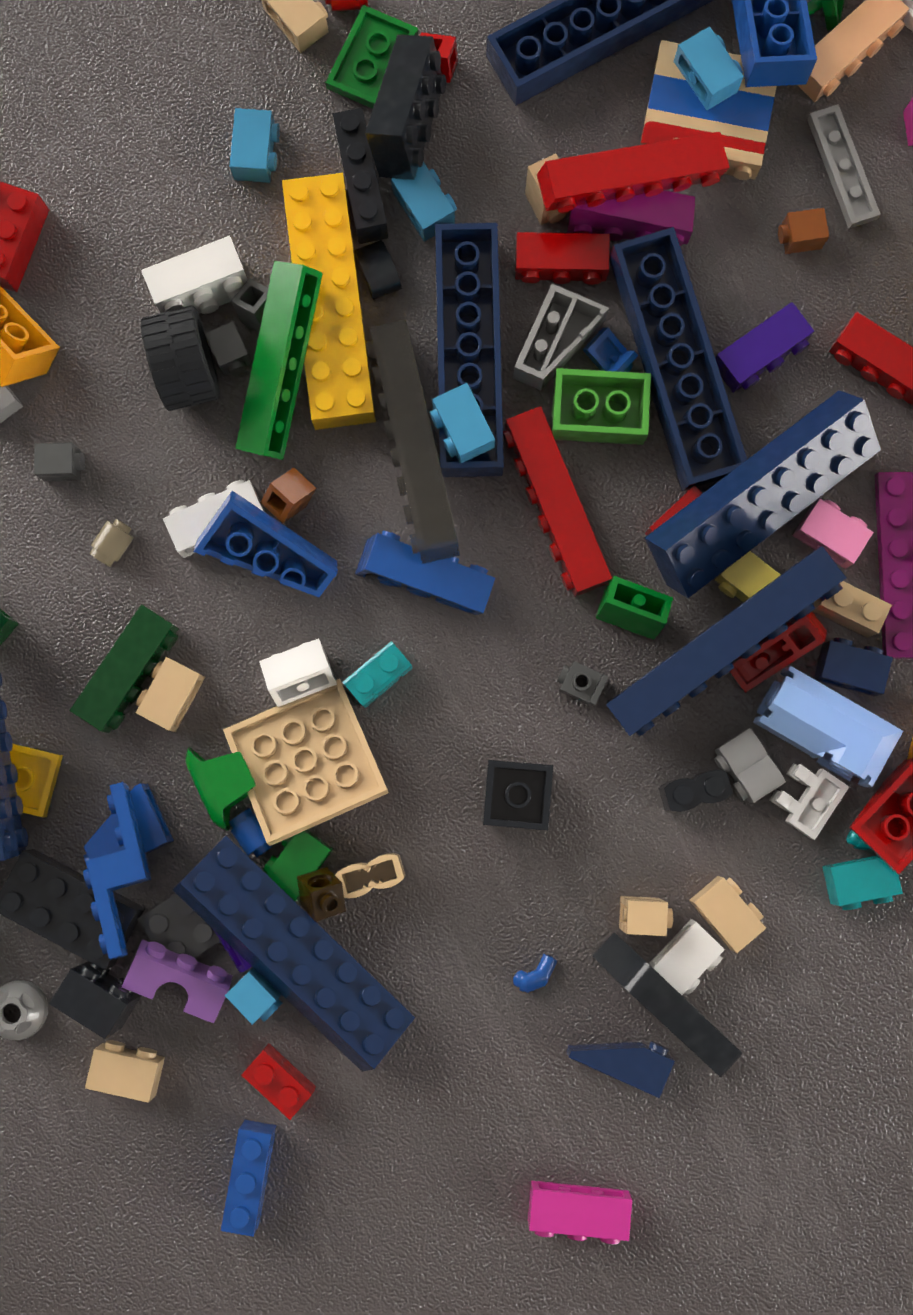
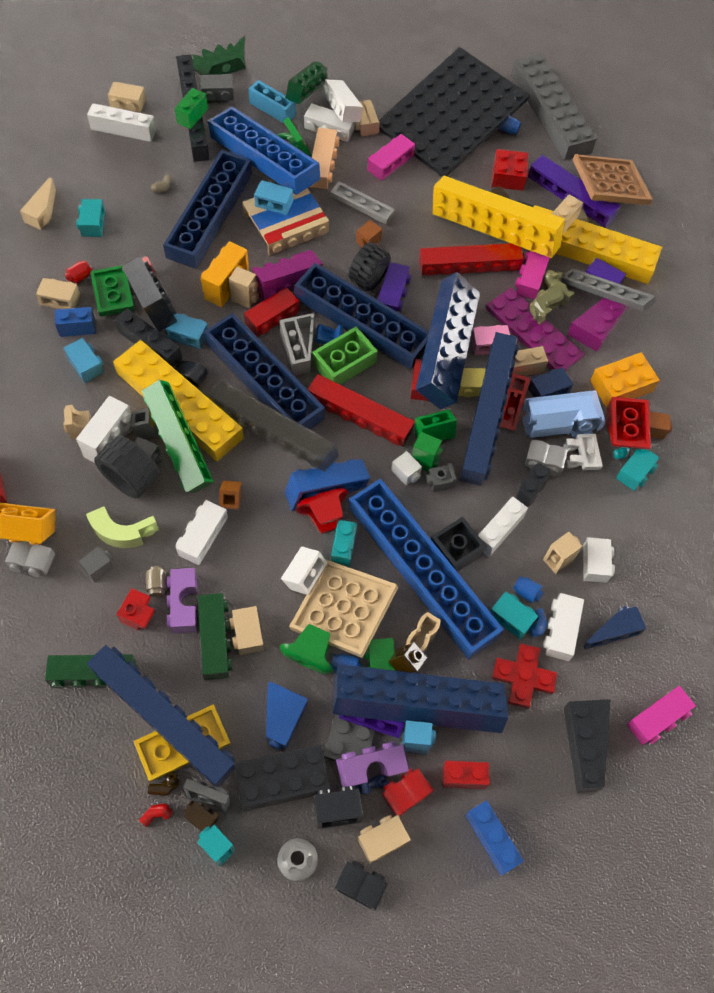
camera: 45 degrees left, 20 degrees down
(55, 563) = (135, 610): none -> red brick
(59, 1100) = (361, 885): none -> black brick
(103, 422) = (120, 535): none -> yellowish green arch
(104, 611) = (181, 583): none -> medium lavender arch
(116, 871) = (296, 727): blue bracket -> none
(172, 233) = (75, 421): none -> tan brick
(173, 998) = (375, 782): none -> dark blue arm
(195, 1042) = (407, 792): none -> red brick
(260, 543) = (234, 521): blue wedge -> none
(284, 75) = (75, 321): none -> blue brick
(392, 609) = (324, 509): none -> red piece
(449, 789) = (425, 569): none -> blue brick
(459, 1022) = (524, 676): none -> red plate
(462, 423) = (291, 399): dark azure brick -> none
(462, 1164) = (588, 741): none -> black wedge
(511, 940) = (513, 615): none -> teal brick
(538, 137) = (216, 278): none -> light orange brick
(547, 635) = (406, 468): none -> white brick
(560, 922) = (528, 589): none -> blue brick
(560, 1006) = (563, 627): none -> white brick
(588, 636) = (427, 451): none -> green brick
(600, 813) = (502, 525): none -> white brick
(632, 172) = (277, 252): red brick -> none
(667, 1004) = (608, 578): black beam -> none
(728, 914) = (596, 525): tan brick -> none
(753, 288) = (369, 266): none -> black tyre

